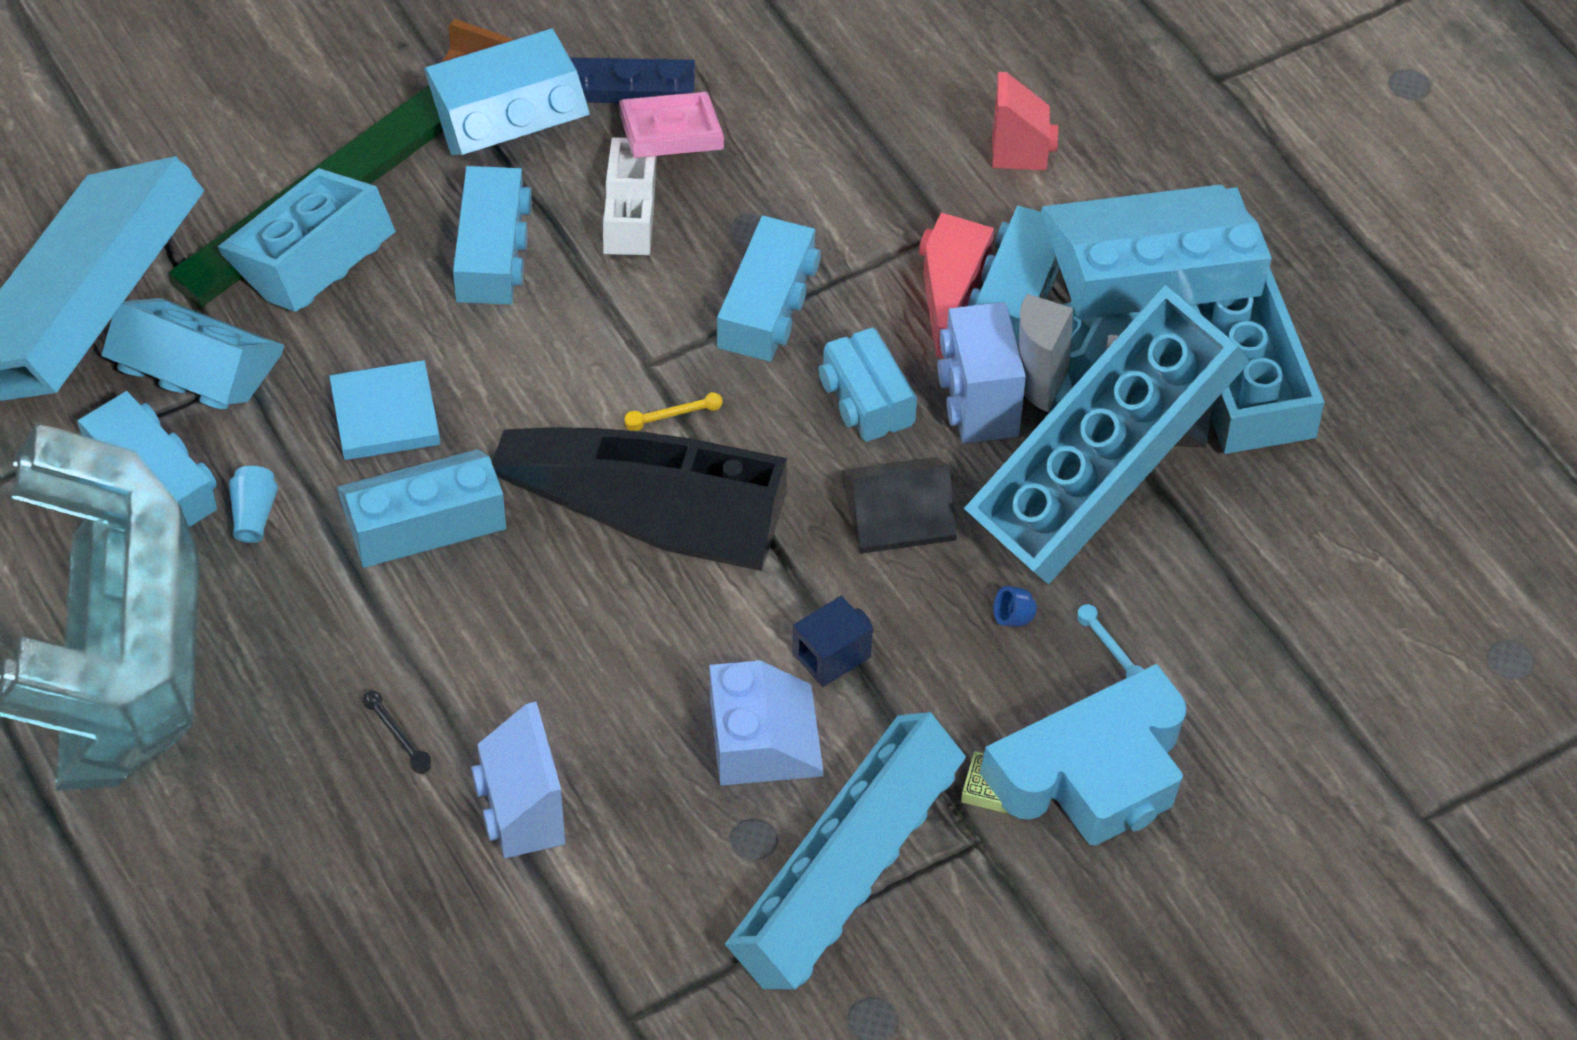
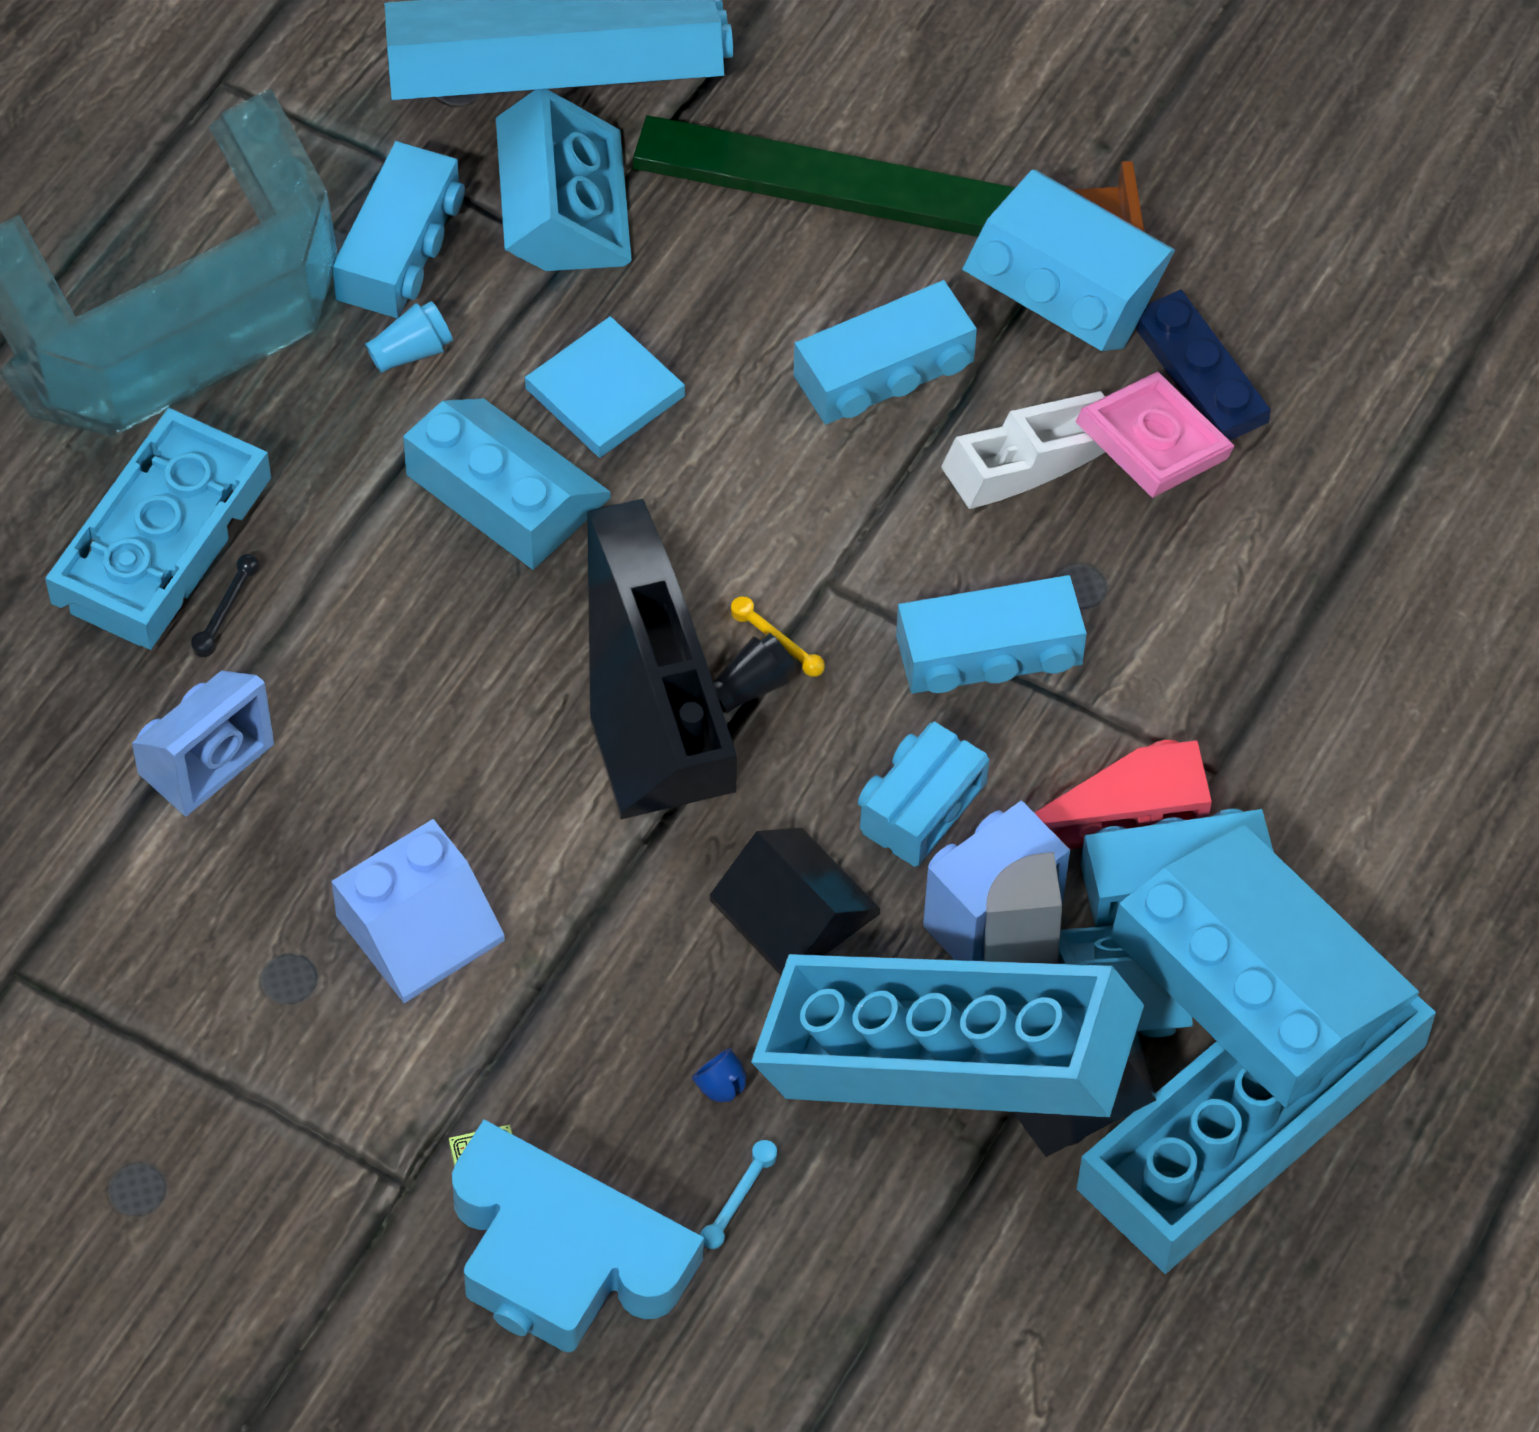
camera: 60 degrees right, 5 degrees up
(308, 735) = (155, 524): none -> medium azure piece
(309, 238) = (760, 202): medium azure slope -> none
(699, 420) = (753, 672): none -> black cone
(832, 640) = (561, 923): dark blue brick -> none
(846, 852) = (298, 1060): medium azure brick -> none
(1021, 127) = (1390, 758): coral slope -> none

